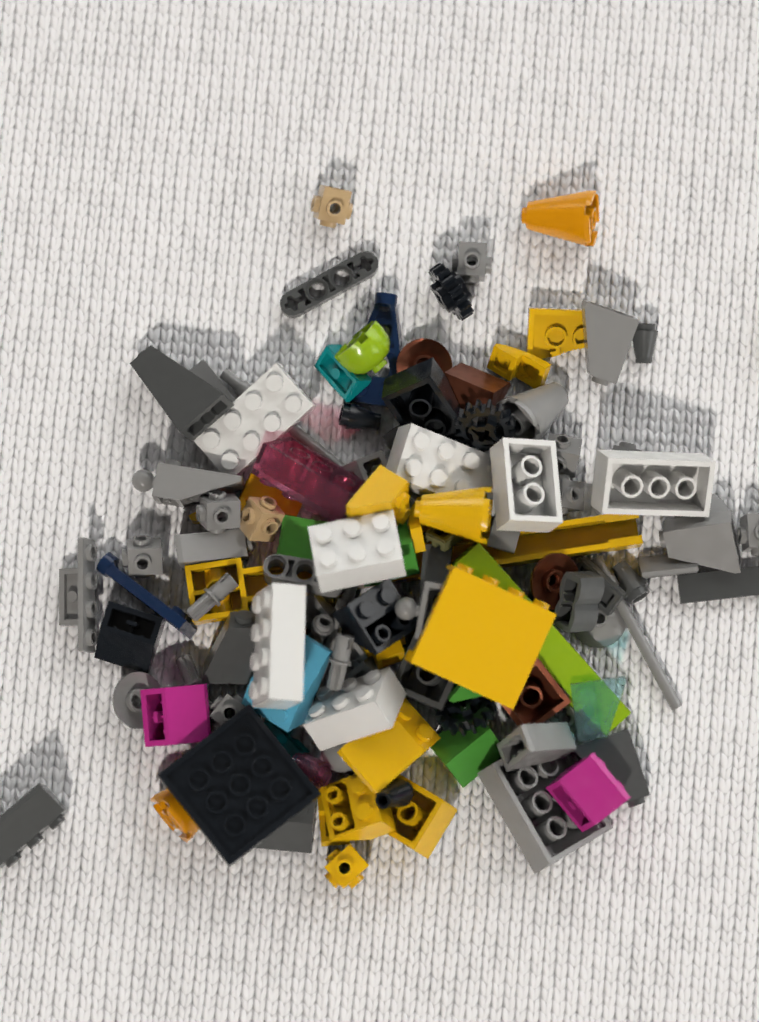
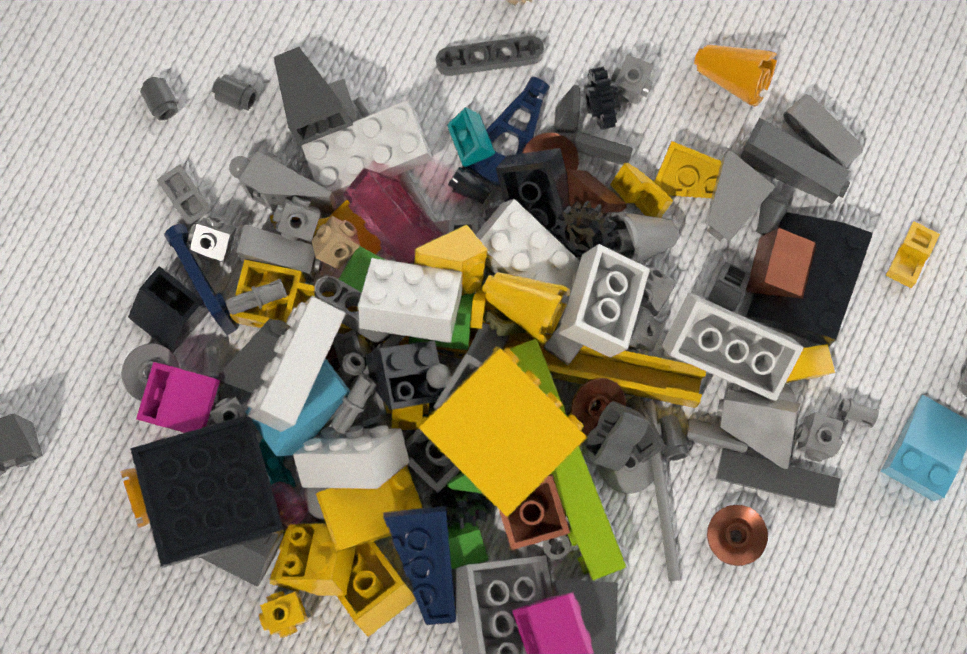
camera: 20 degrees right, 5 degrees down
(36, 441) = (159, 98): none -> dark grey brick
(77, 596) = (137, 253): light grey bracket -> none
(97, 524) = (184, 195): none -> light grey slope
(104, 409) = (234, 92): none -> dark grey brick
(365, 350) = (499, 122): lime cylinder -> none
(395, 794) = (358, 559): black cone -> none
(423, 314) = (568, 111): none -> dark grey slope
(451, 767) = (425, 554): none -> dark blue wing
(469, 337) = (603, 148): none -> dark grey tile
(536, 744) = (519, 562): light grey slope -> none
(596, 706) = (593, 547): clear light blue wing -> none
(631, 425) = (729, 286): none -> dark grey slope
(648, 287) = (794, 163): none -> dark grey slope
(664, 247) = (822, 131): none -> light grey beam
(670, 388) = (781, 264): none -> copper slope
(698, 388) = (829, 285): none -> black slope
(727, 636) = (752, 531): none -> copper dish
(729, 467) = (812, 363): none -> yellow slope

